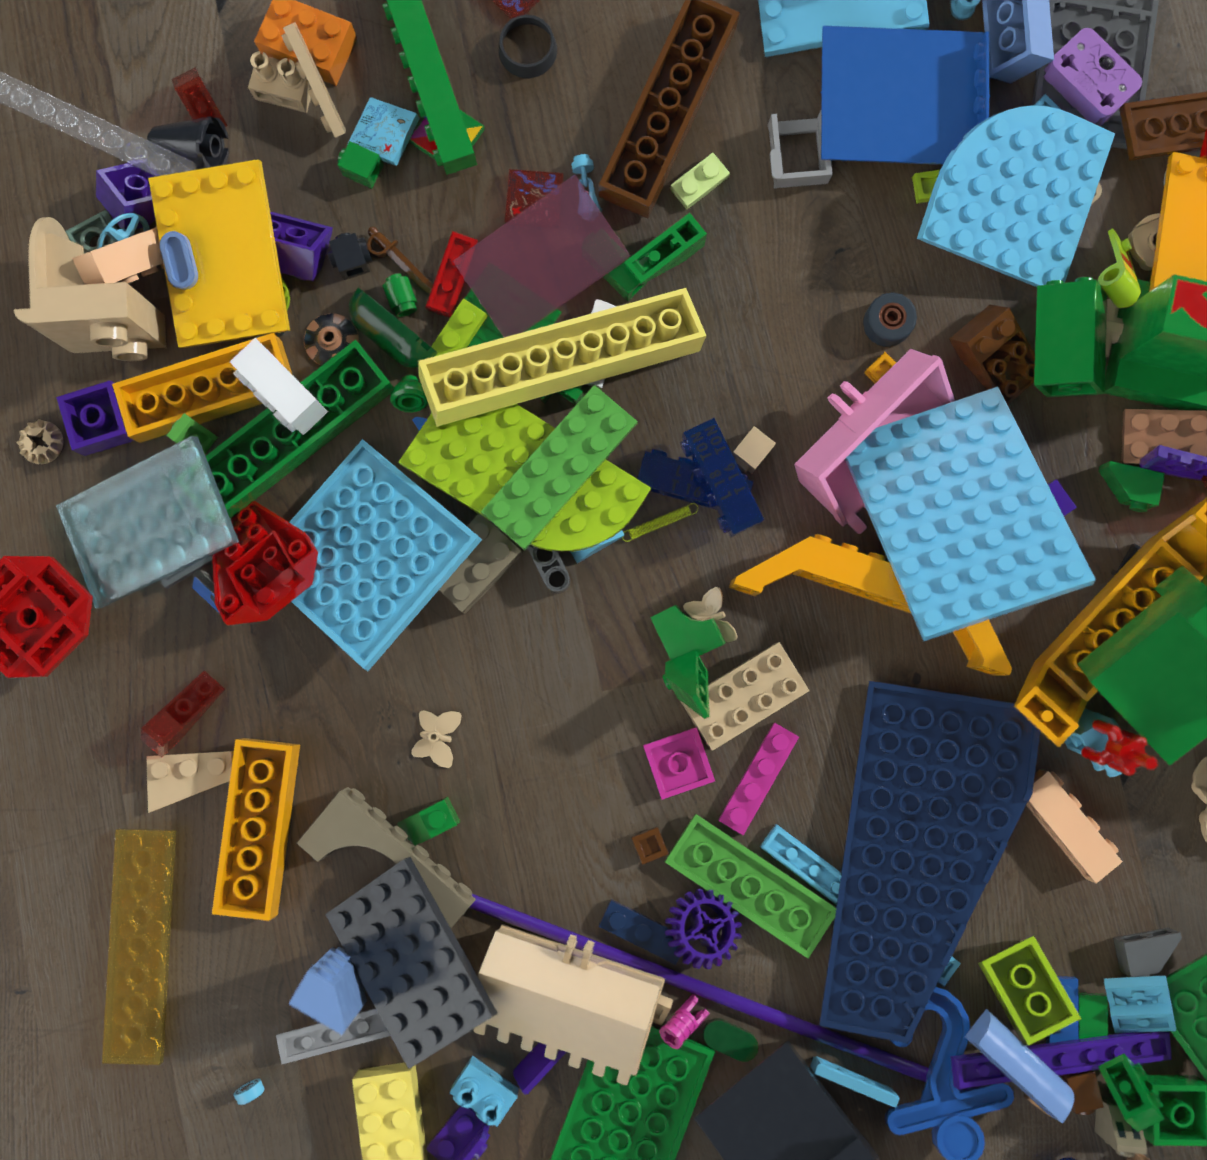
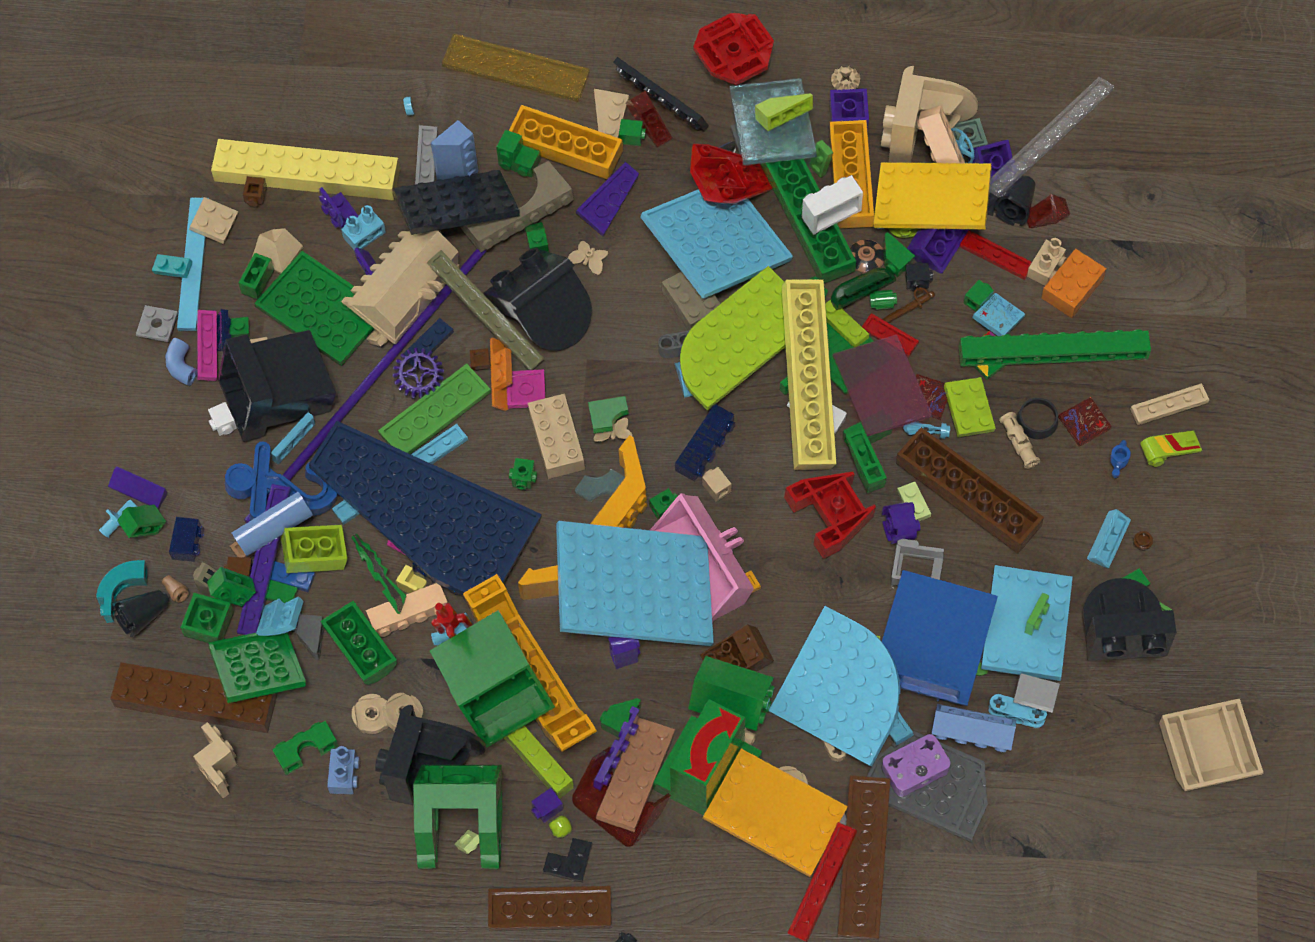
camera: 110 degrees right, 20 degrees down
(127, 511) = (780, 110): none -> lime slope
(135, 715) = (656, 92): none -> black plate
(178, 260) = (932, 169): medium blue tile -> none
(212, 732) = (632, 132): none -> green brick
(285, 155) = (995, 254): none -> red tile
(297, 898) = (516, 156): none -> green brick
(308, 69) = (1037, 275): tan plate -> none
(324, 294) = (896, 255): none -> green slope
(341, 737) = (607, 199): none -> dark purple wing
(537, 138) = (969, 407): none -> lime plate
(537, 782) = (544, 299): none -> black plate
(559, 467) = (736, 353): bright green plate -> none
(566, 62) = (1019, 440): none -> tan piece
(579, 863) = (485, 310): none -> olive tile
(662, 525) = (686, 415): neon yellow piece -> none
(665, 807) = (500, 373): none -> orange bracket
(682, 1023) = (364, 346): dark pink hinge -> none
(689, 681) = (574, 398): green slope -> none
(721, 477) = (700, 450): clear blue brick -> none
(730, 1040) = (344, 375): dark green tile -> none
(745, 183) = (900, 522): none -> dark purple brick
(745, 274) = (836, 506): none -> red wedge
(758, 778) = (499, 433): dark pink plate -> none
(803, 622) = (593, 487): none -> clear light blue tile
(804, 513) = (661, 502): none -> green brick
(808, 726) = (523, 474): none -> green brick
(884, 329) = (778, 599): black wheel -> none
(1027, 835) = (409, 581): none -> light yellow panel
(1028, 884) = (378, 572): none -> green sword
(1120, 278) = (764, 737): lime door -> none
(1145, 879) = (360, 643): none -> green brick

